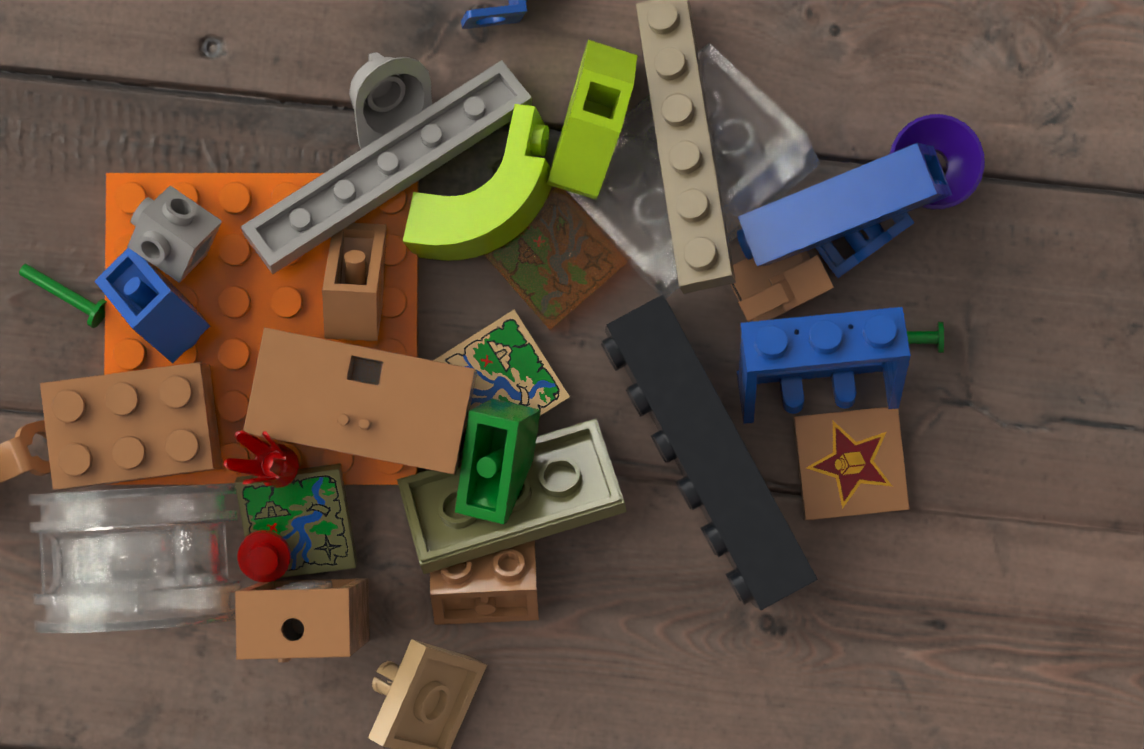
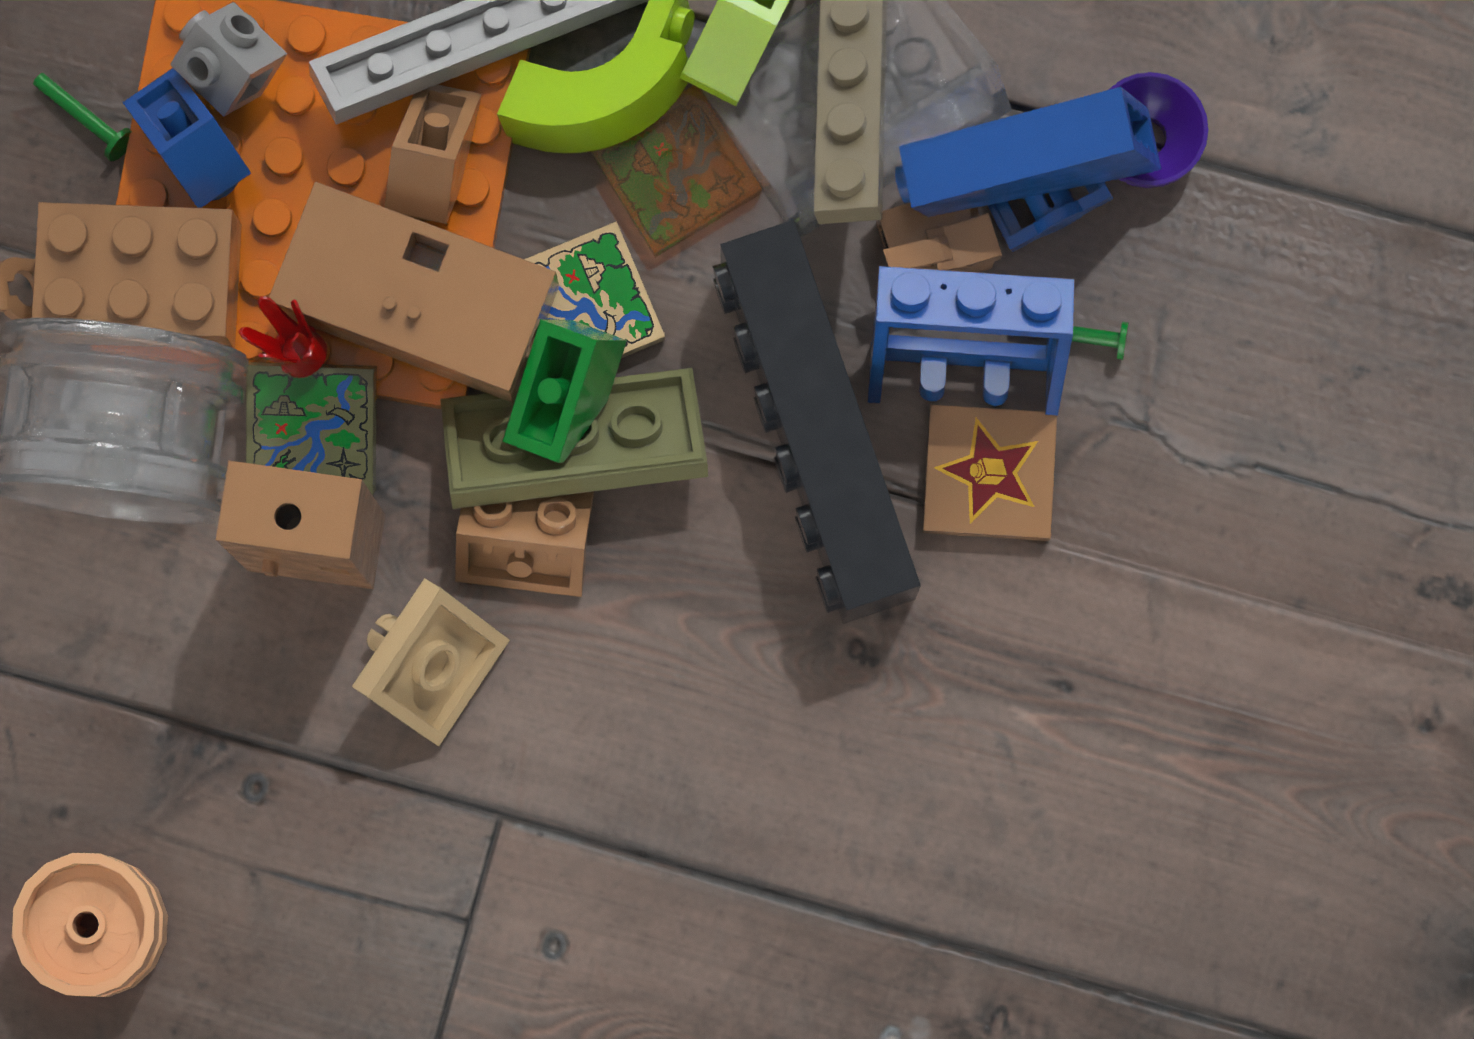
camera: 10 degrees right, 5 degrees down
(264, 556) = (267, 447): red plate -> none

